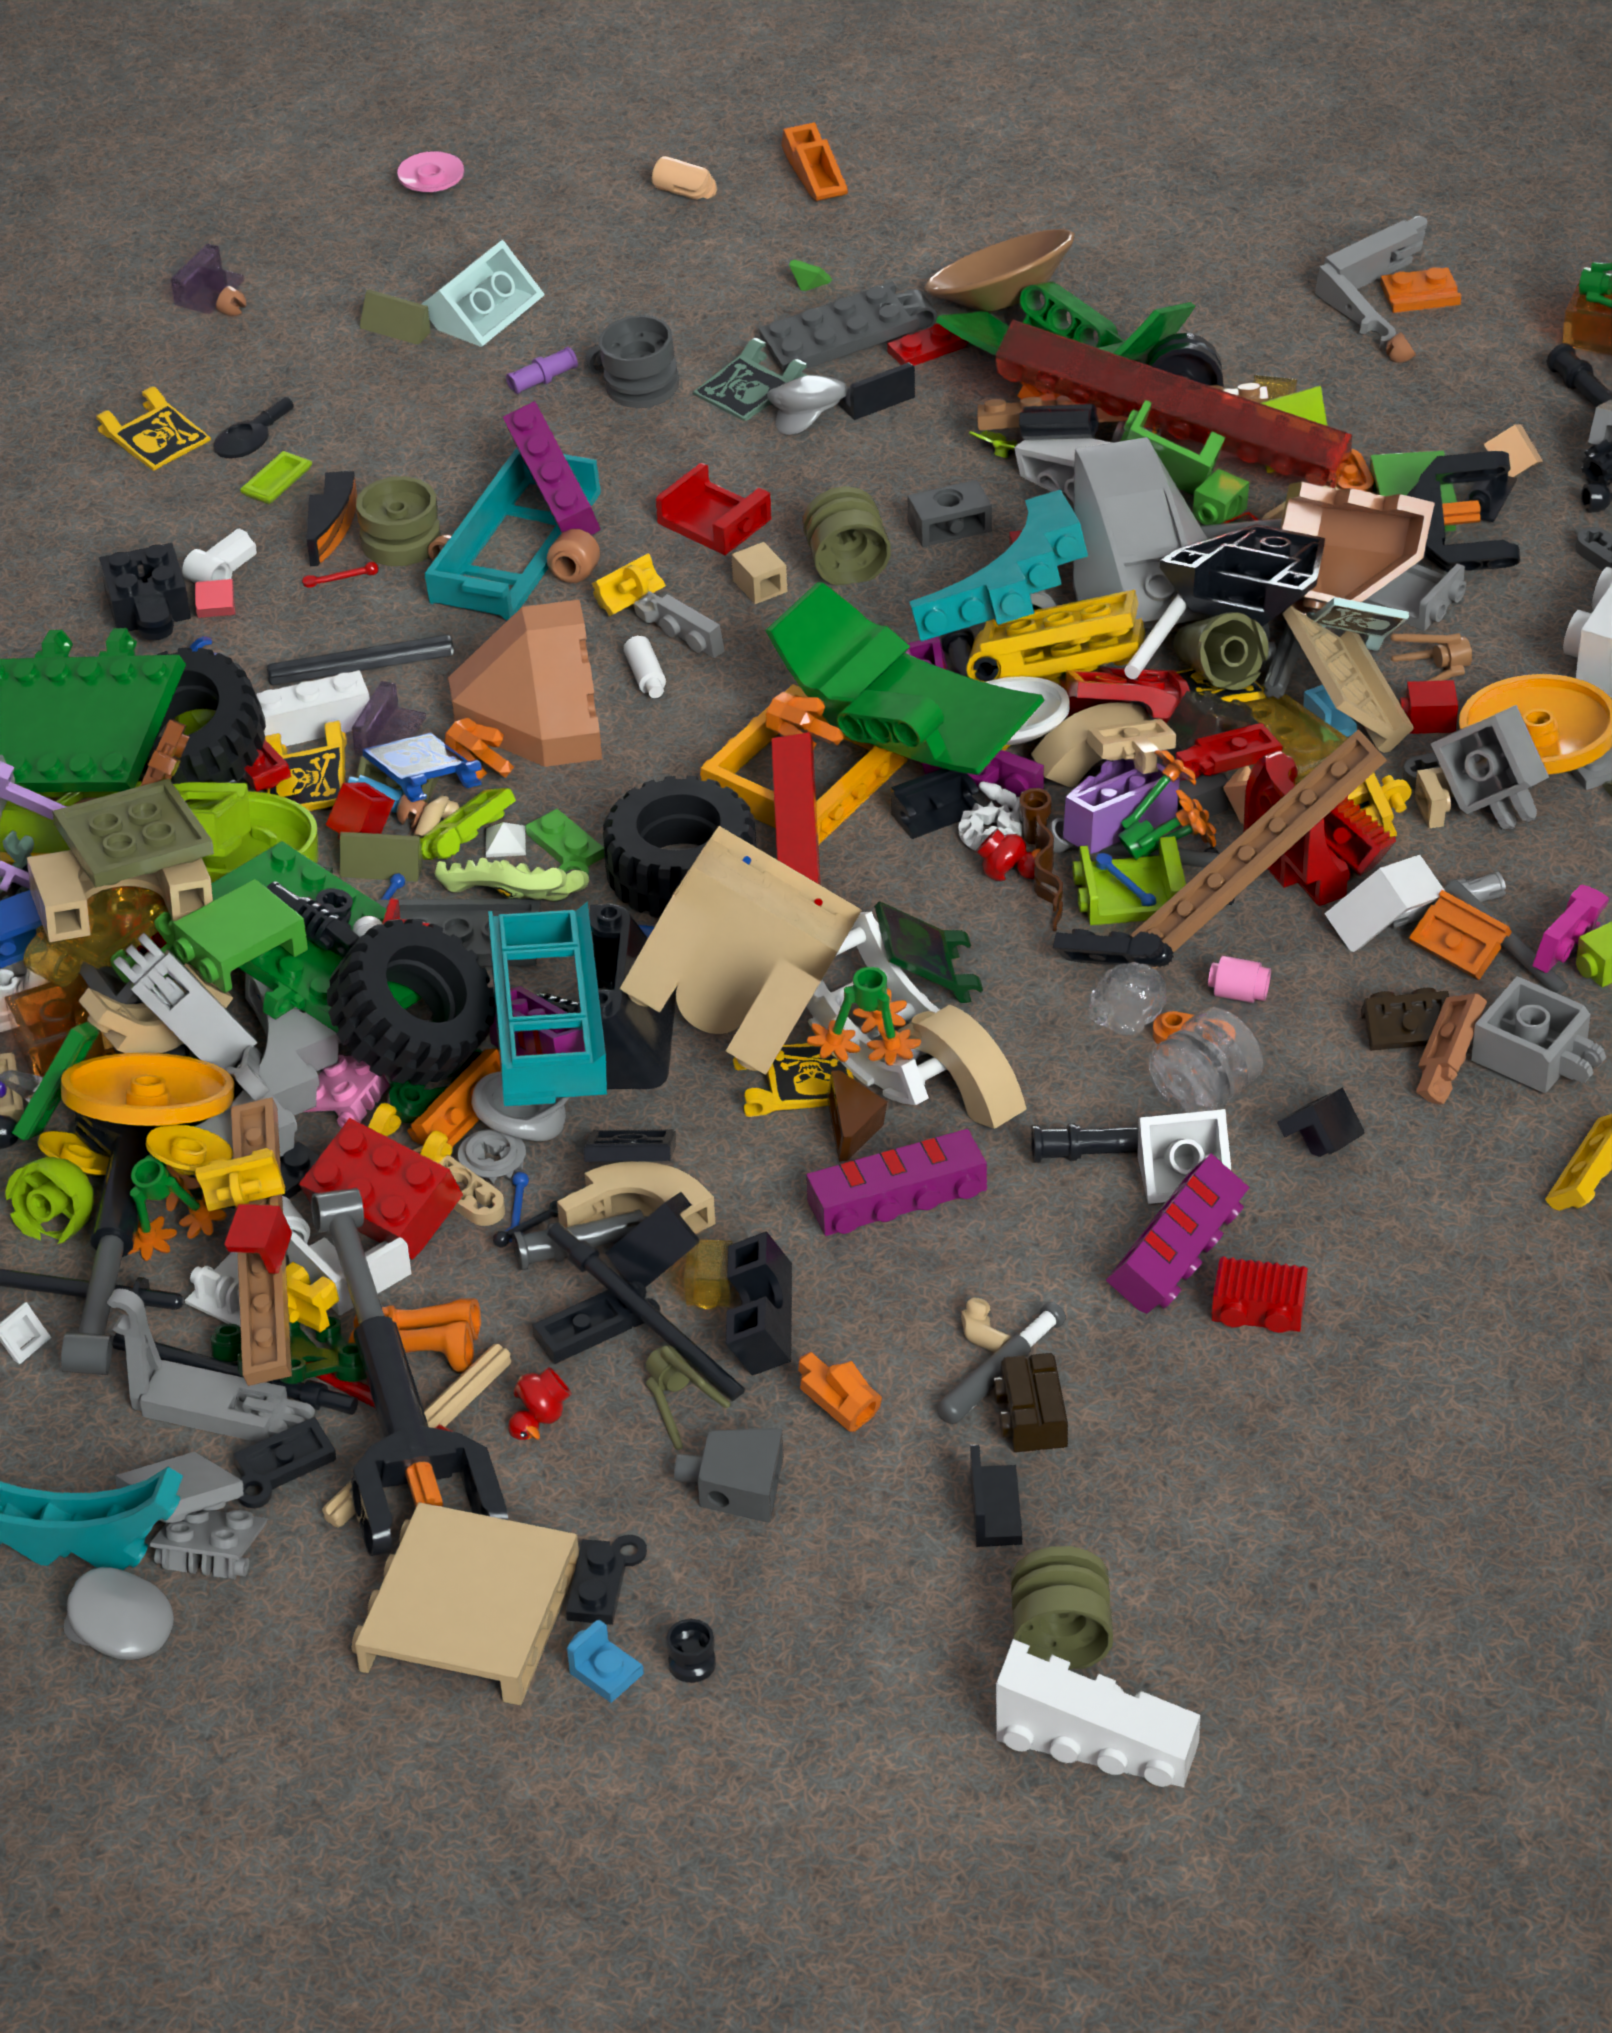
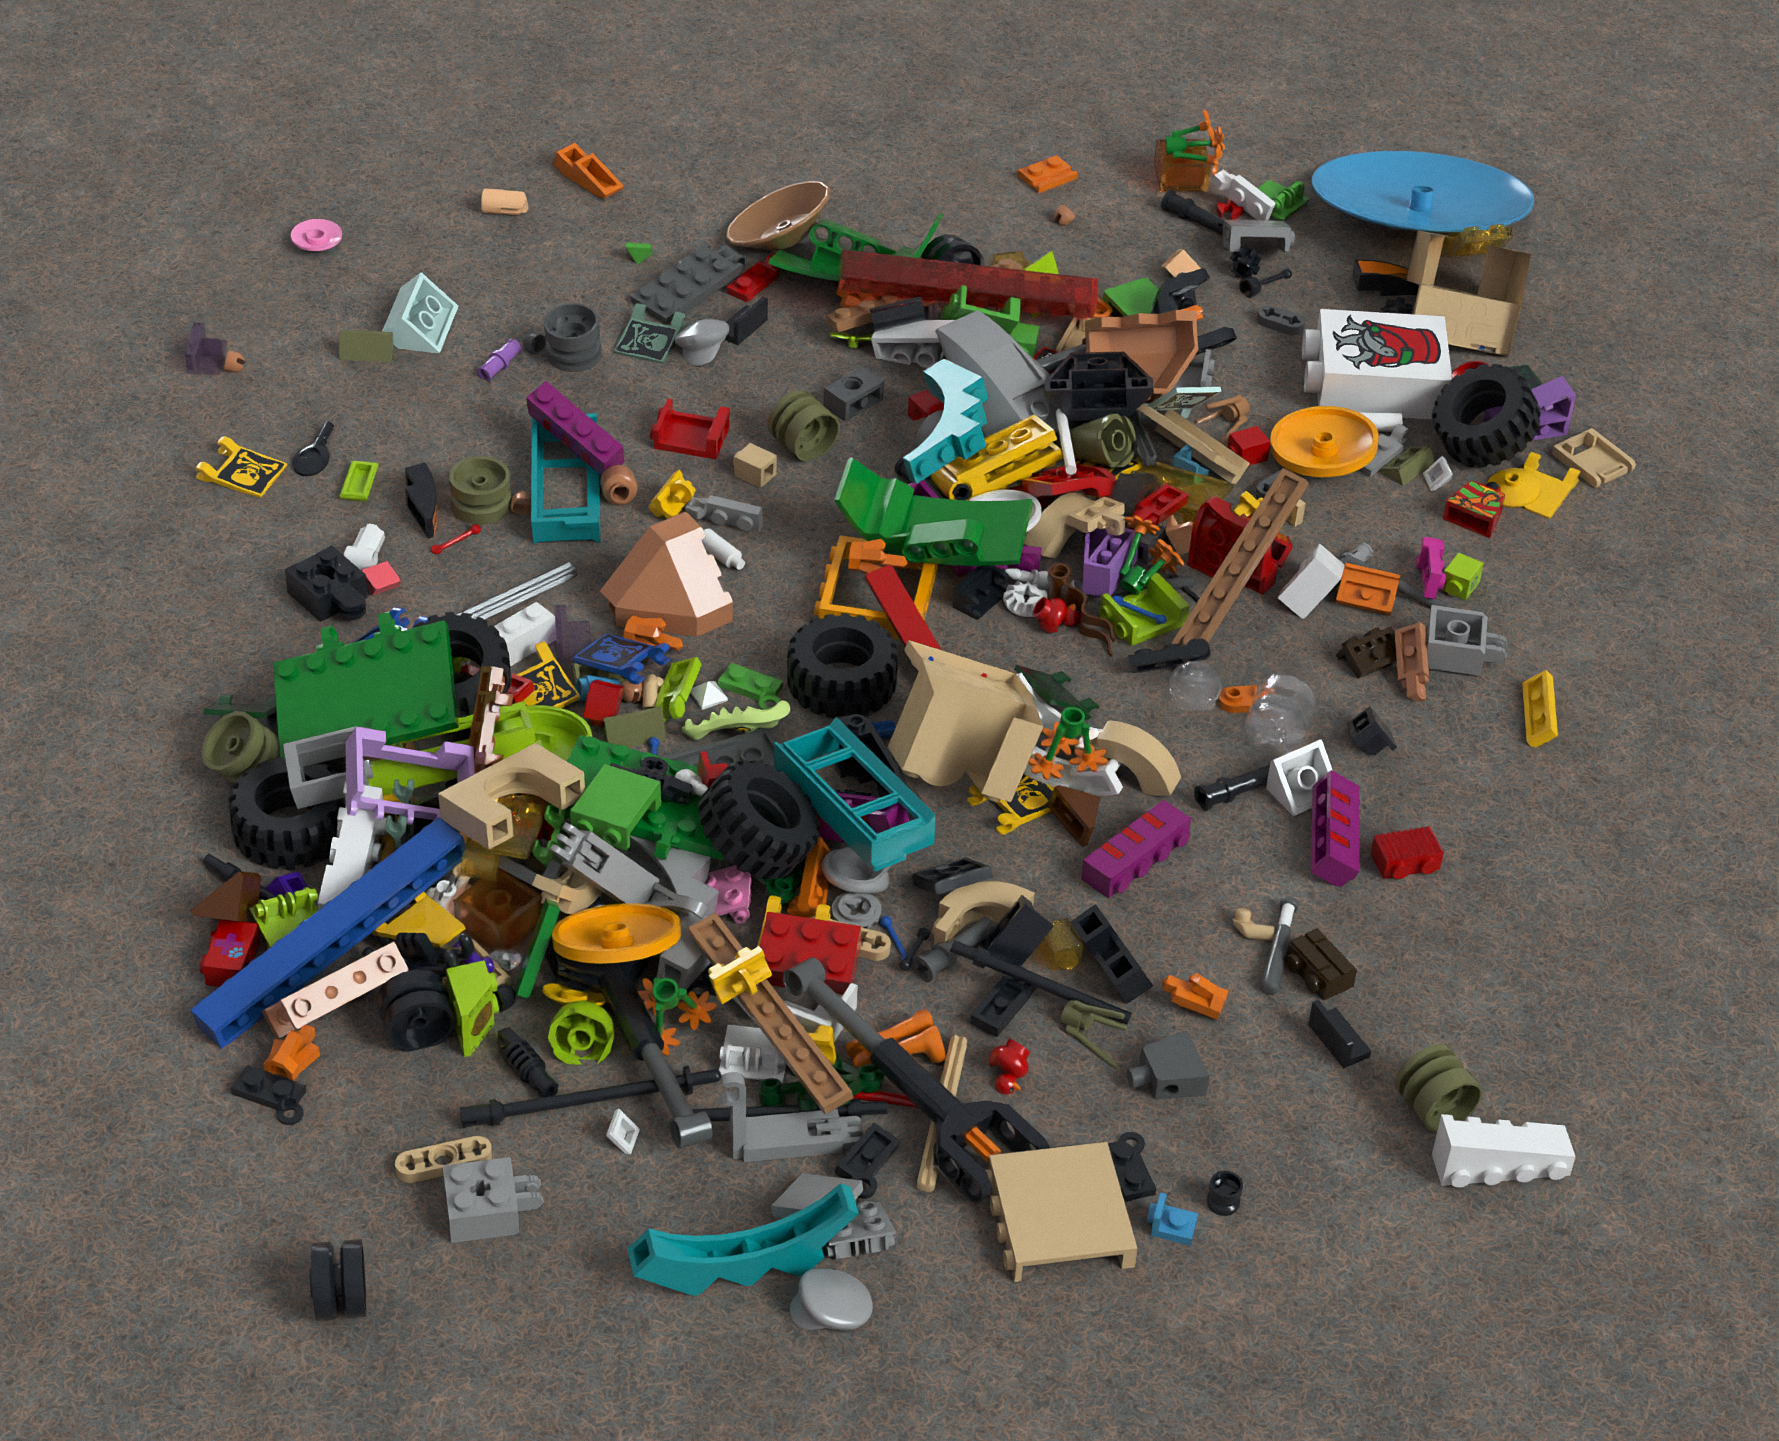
camera: 30 degrees left, 0 degrees up
(132, 833) = (508, 754): olive plate -> none
(186, 1147) = (680, 965): yellow dish -> none
(260, 1231) = (781, 1006): red panel -> none
(1239, 979) = (1254, 655): bright pink brick -> none
(1365, 263) = (1004, 164): light grey hinge -> none
(1490, 764) = (1340, 476): light grey hinge -> none

